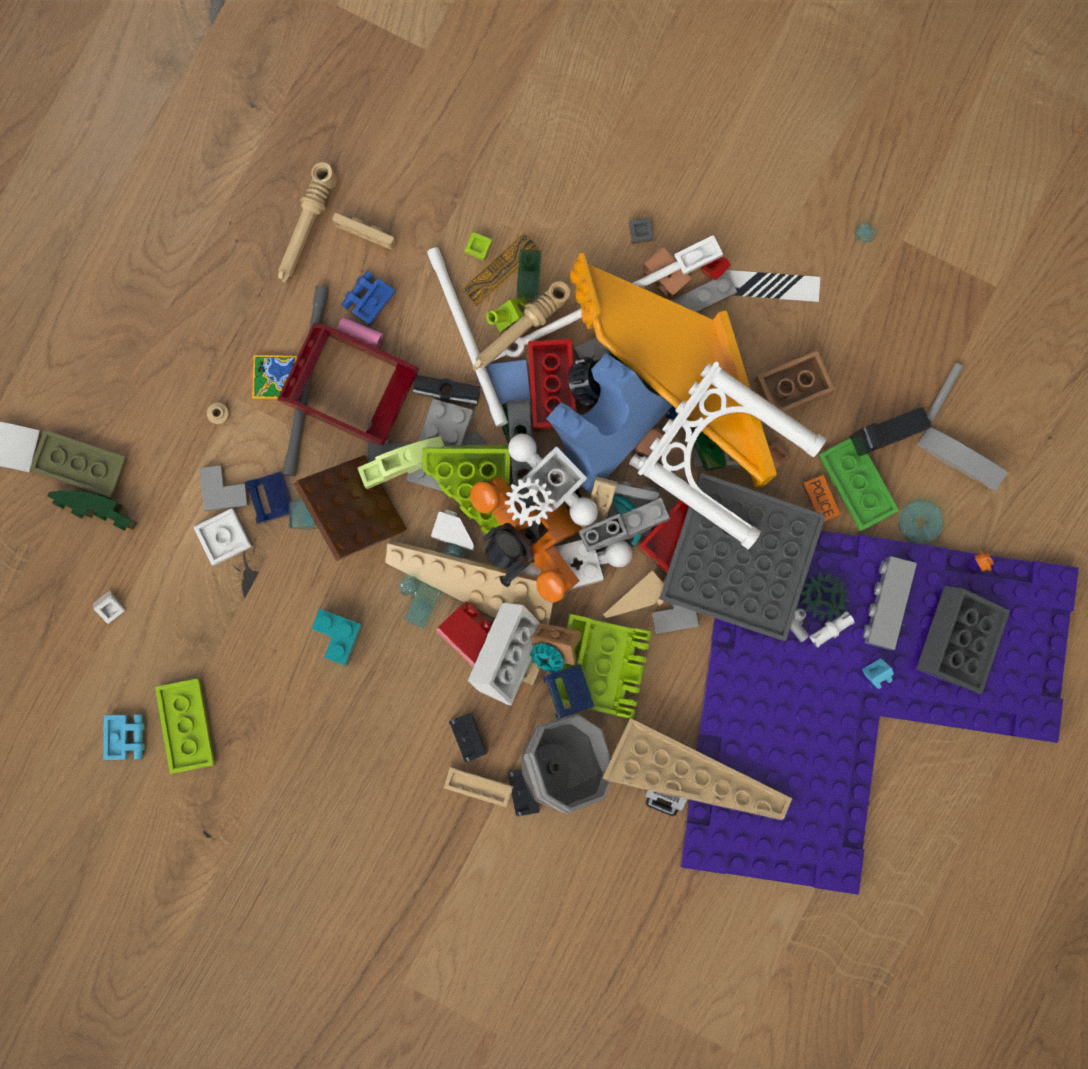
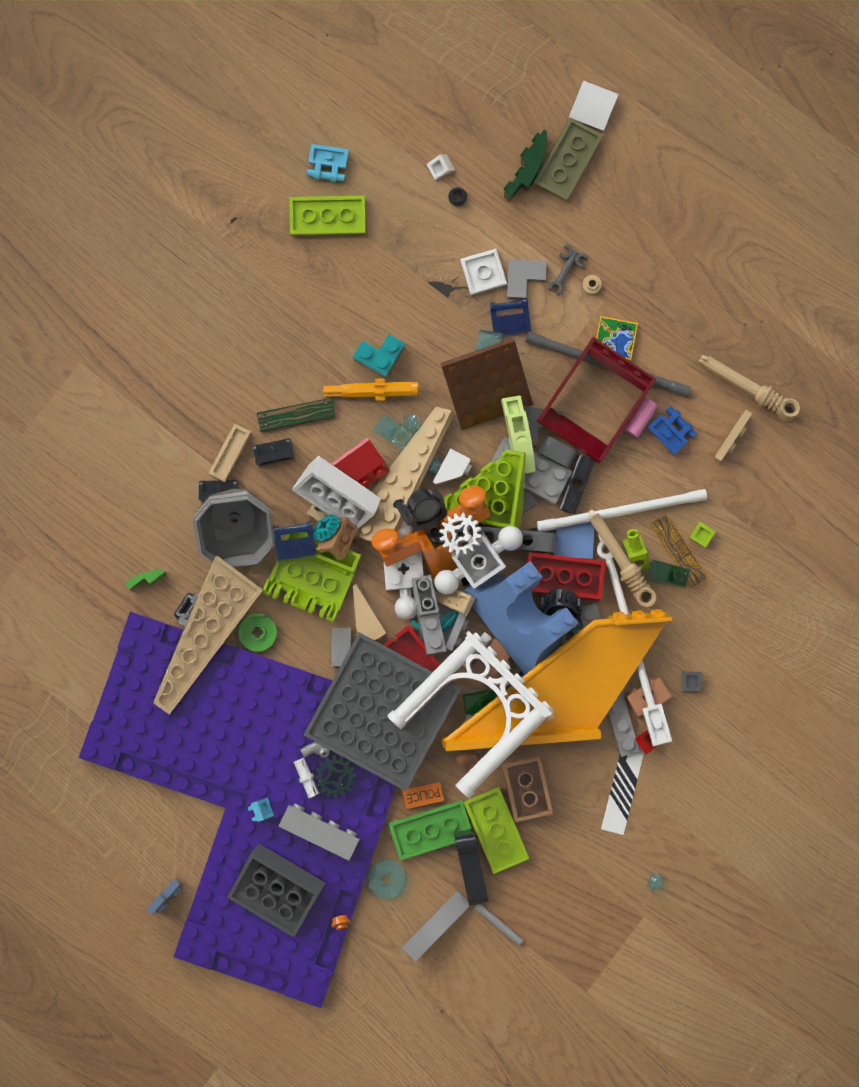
camera: 100 degrees right, 0 degrees up
(133, 581) = (457, 190): none -> black plate
(190, 440) = (573, 257): none -> dark grey bar
(377, 630) = (379, 389): none -> light orange piece
(414, 417) = (558, 452): none -> dark grey beam
(421, 719) = (295, 414): none -> dark green tile
(637, 852) = (151, 577): none -> bright green slope
(687, 723) = (266, 639): none -> bright green plate
(846, 410) = (496, 830): none -> lime plate
(1003, 769) = (160, 903): none -> sand blue plate

